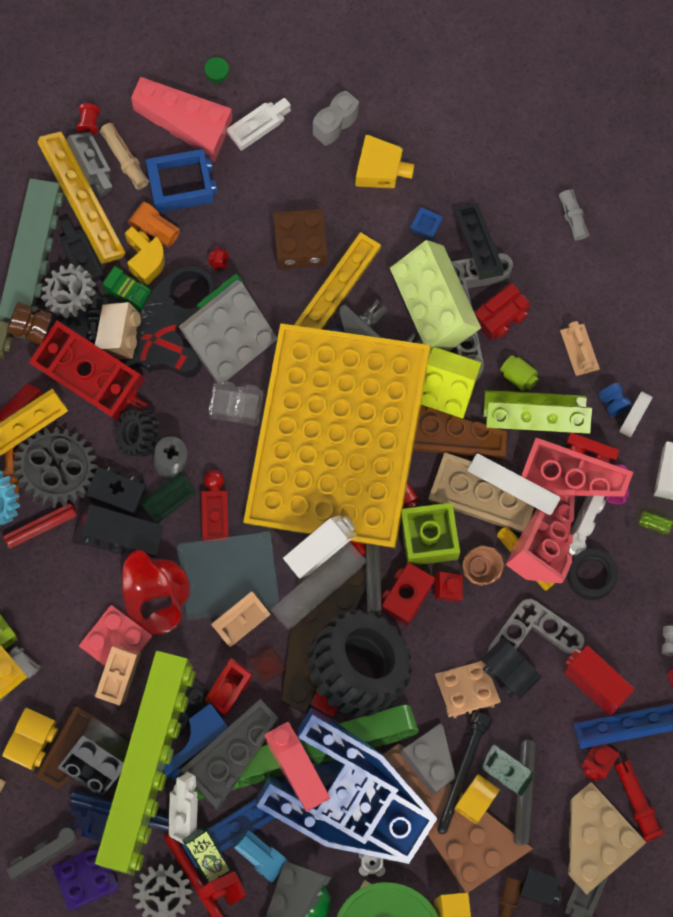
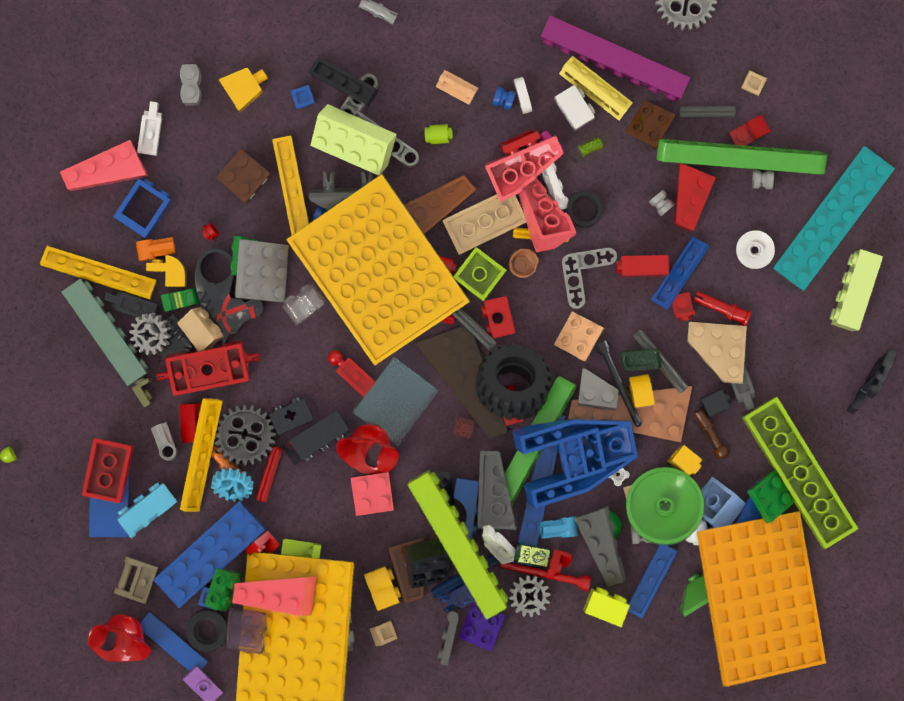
camera: 40 degrees left, 15 degrees up
(25, 663) = (336, 553): light grey pin -> none
(29, 322) = (149, 375): reddish brown wheel -> none
(88, 118) = (53, 223): red bush -> none
(91, 161) = (81, 246): dark grey hinge -> none
(118, 675) = (393, 511): light nougat hinge -> none
(128, 162) = (103, 226): tan pin -> none
(128, 433) = (275, 368): black tyre -> none
(168, 498) = (321, 392): clear green plate -> none
(174, 447) = (300, 378): dark grey piece -> none
(216, 70) = (93, 121): green tile -> none
(229, 687) = (456, 460): red slope -> none
(240, 619) = (425, 418): light nougat hinge -> none
(296, 766) = (535, 468): coral slope -> none
(318, 586) = (449, 360): clear plate -> none
(320, 545) = (432, 341): white window -> none
(448, 586) = (516, 291): red plate -> none
(449, 382) = (408, 179): neon yellow brick -> none
(502, 311) = (394, 109): red brick -> none
(510, 668) = (592, 305): black brick -> none
(514, 484) = (497, 203): white sticker -> none
(537, 411) = (471, 150): lime fence -> none

